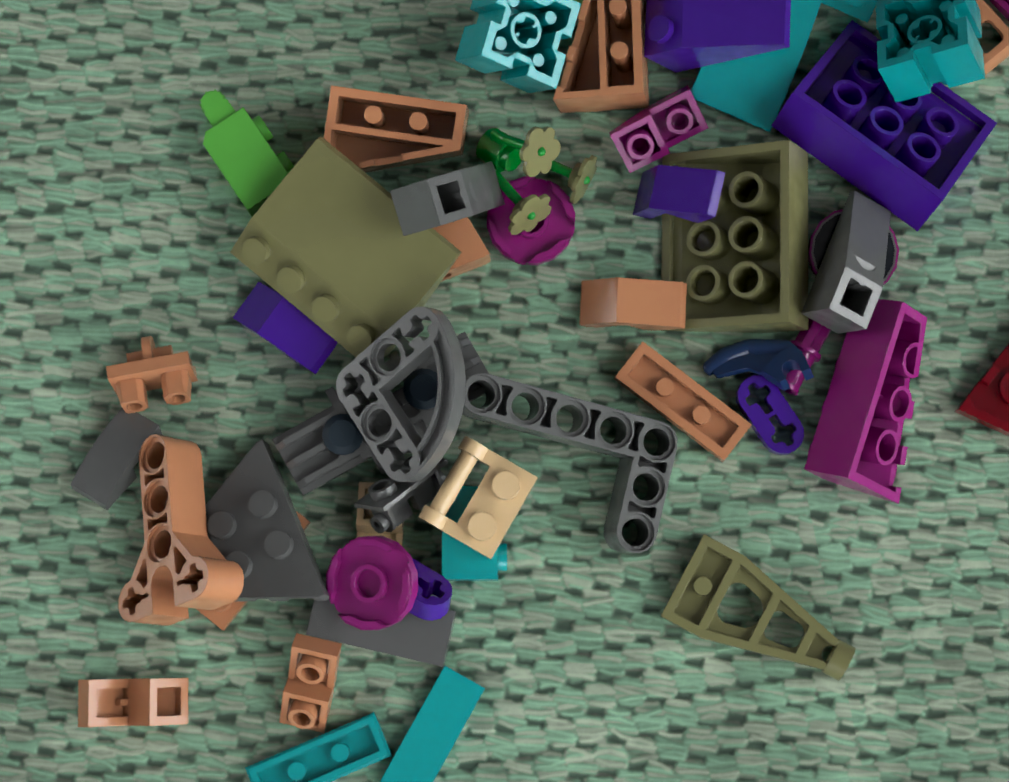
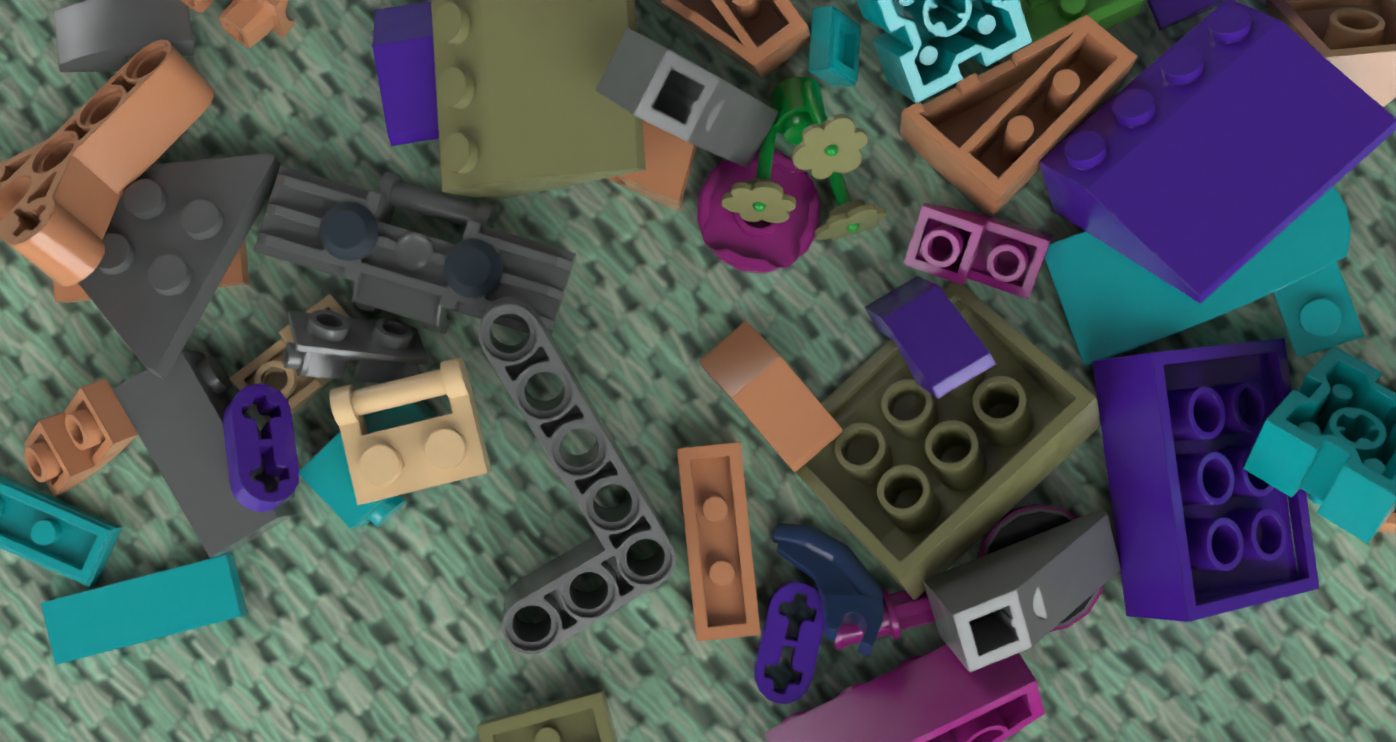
camera: 45 degrees right, 5 degrees up
(372, 582) = (216, 408): magenta tile -> none
(380, 382) = (430, 215): dark grey beam -> none
(484, 102) = (834, 47): none -> teal tile

